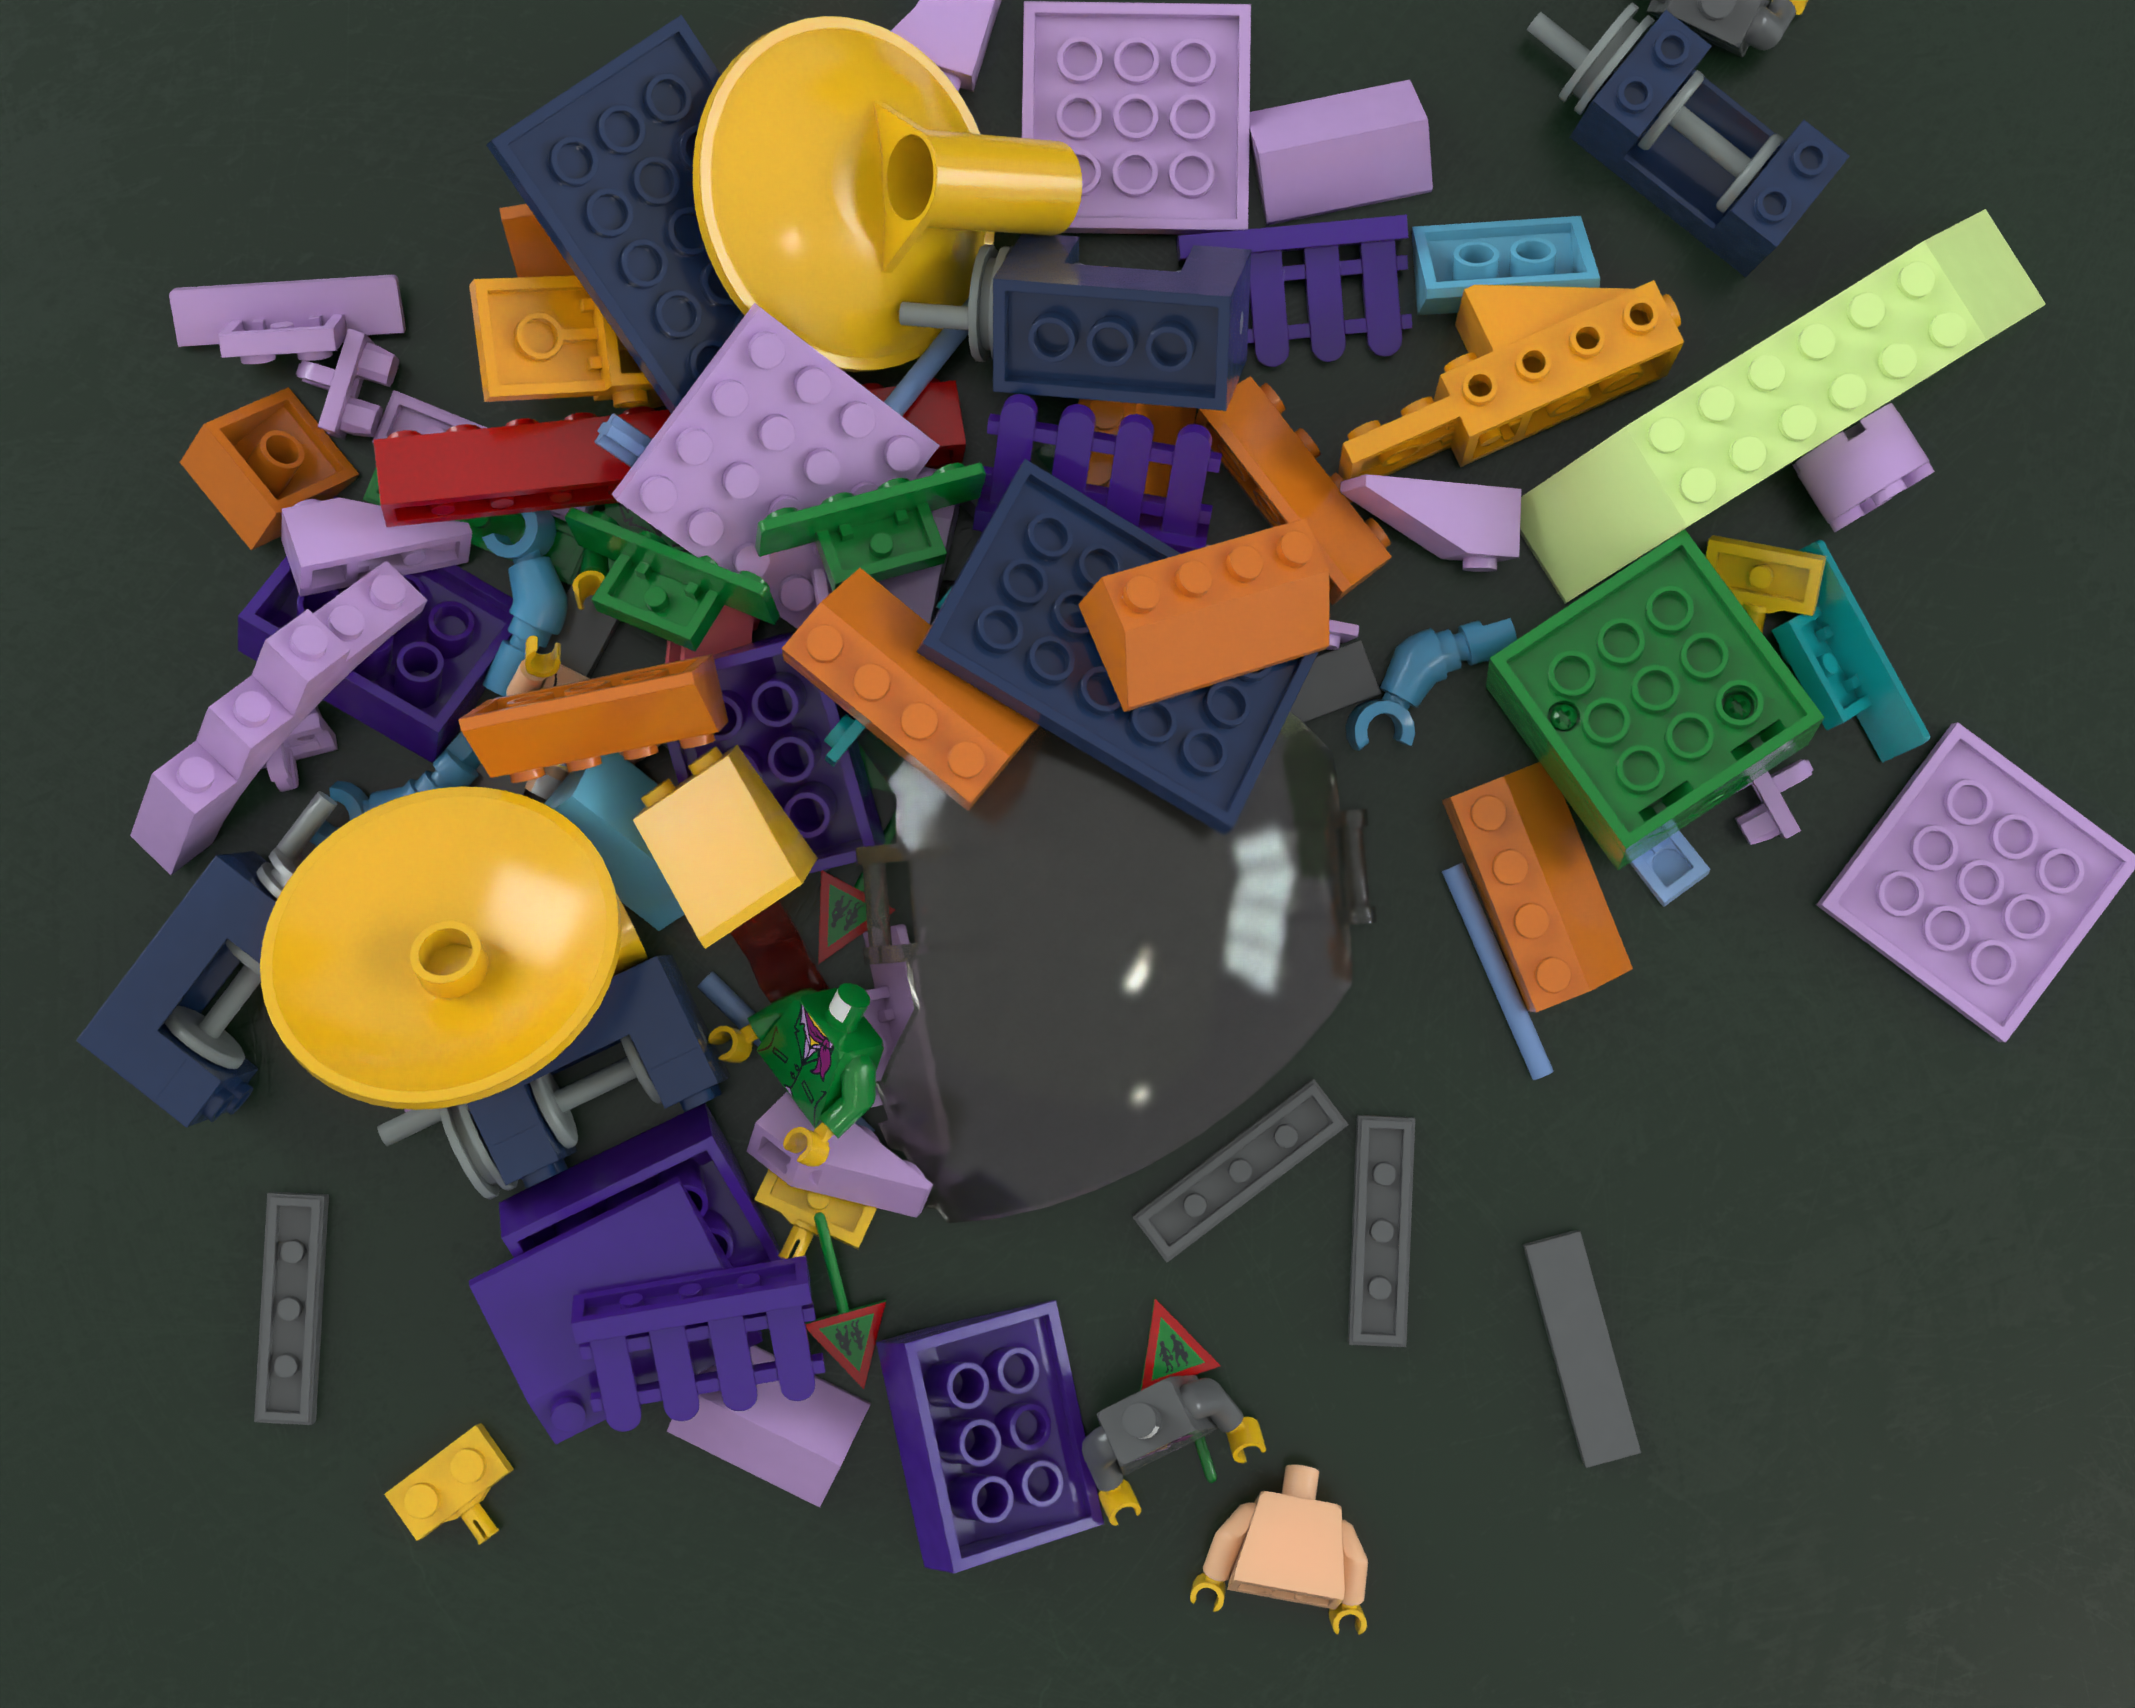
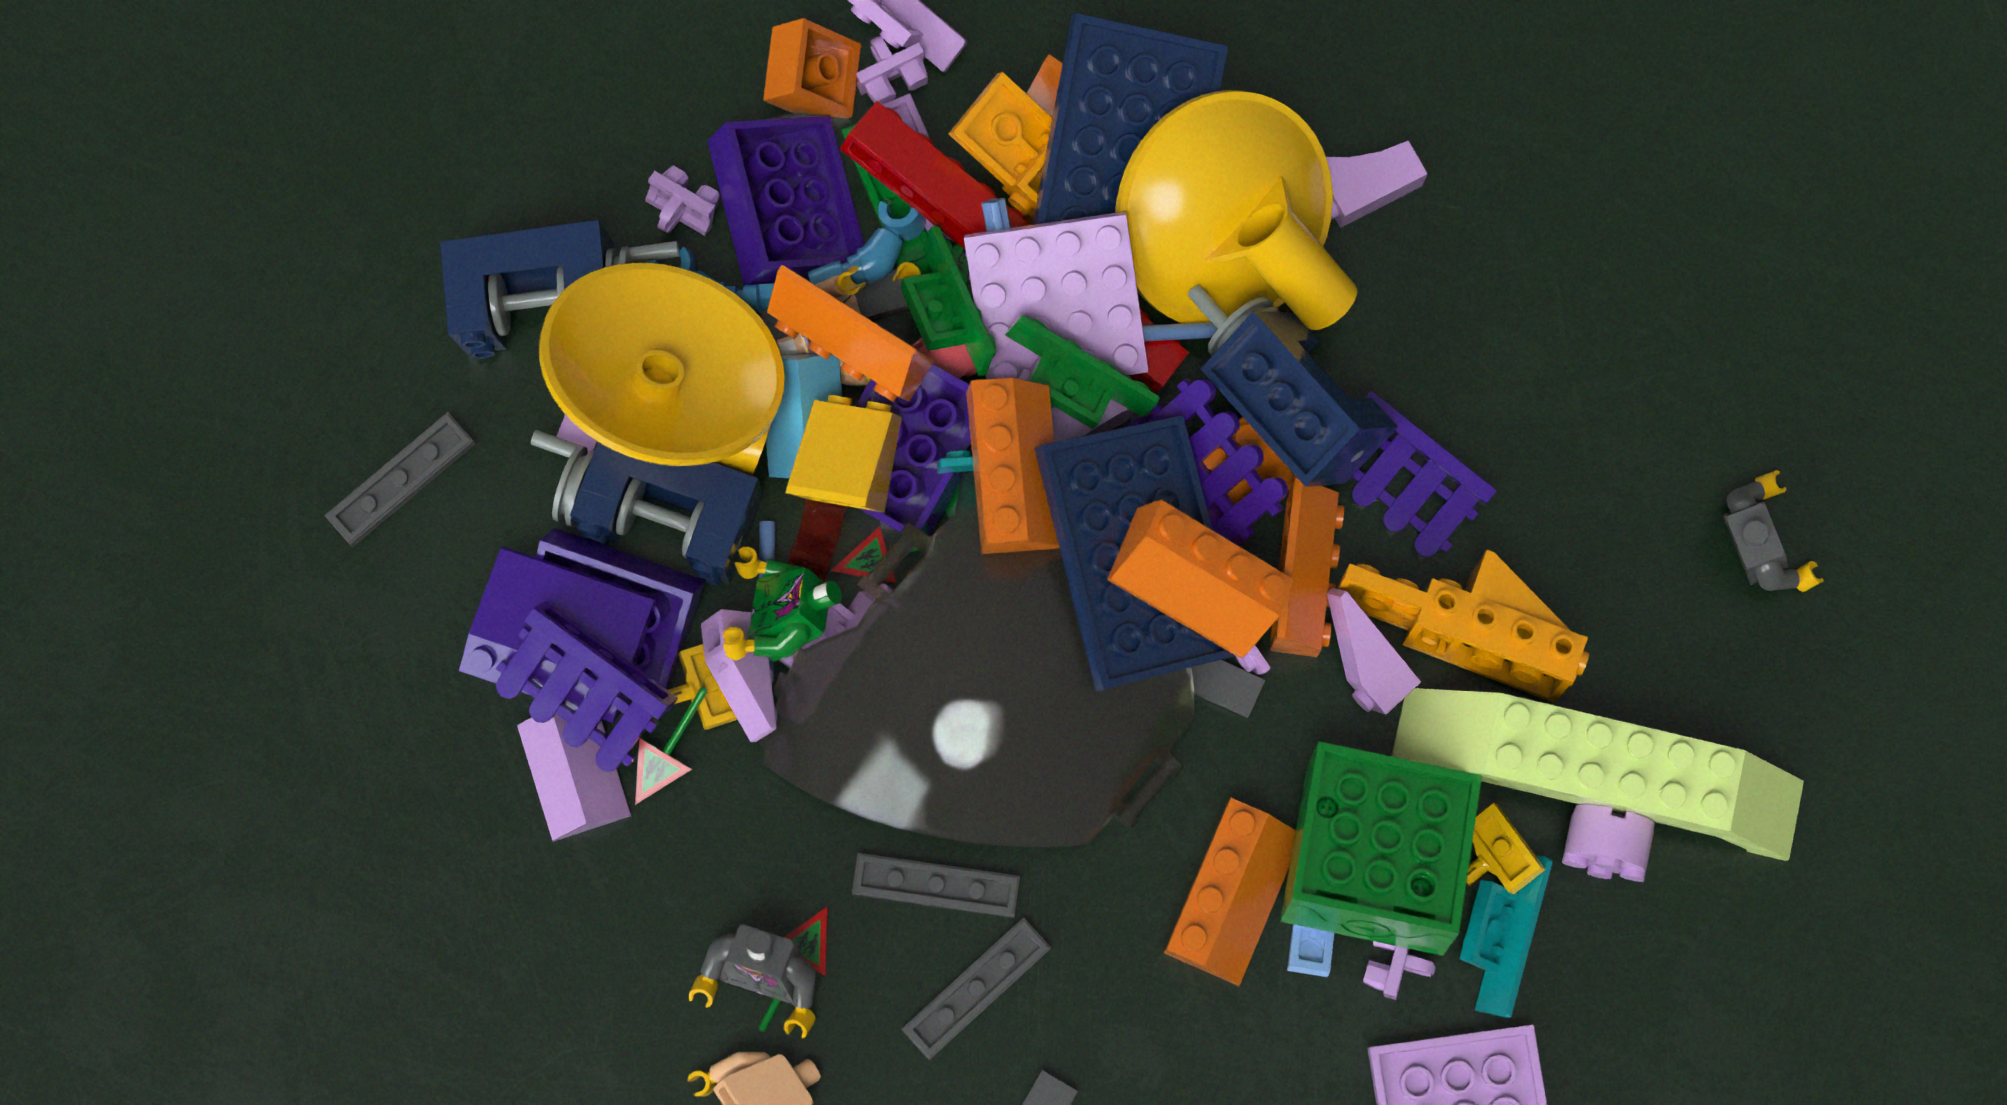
camera: 40 degrees right, 10 degrees down
(249, 723) = (680, 175): lavender arch -> none
(344, 539) = (813, 143): lavender slope -> none
(452, 1486) = (385, 645): yellow plate -> none
(989, 1435) = (675, 888): dark purple slope -> none
(1149, 108) = (1415, 317): lavender plate -> none
(1340, 152) = (1495, 432): lavender slope -> none
(1417, 667) = (1279, 721): dark azure piece -> none
(1497, 971) = (1168, 917): medium blue bar -> none
(1498, 253) = (1527, 557): medium azure slope -> none
(1687, 139) = (1677, 591): dark blue piece -> none

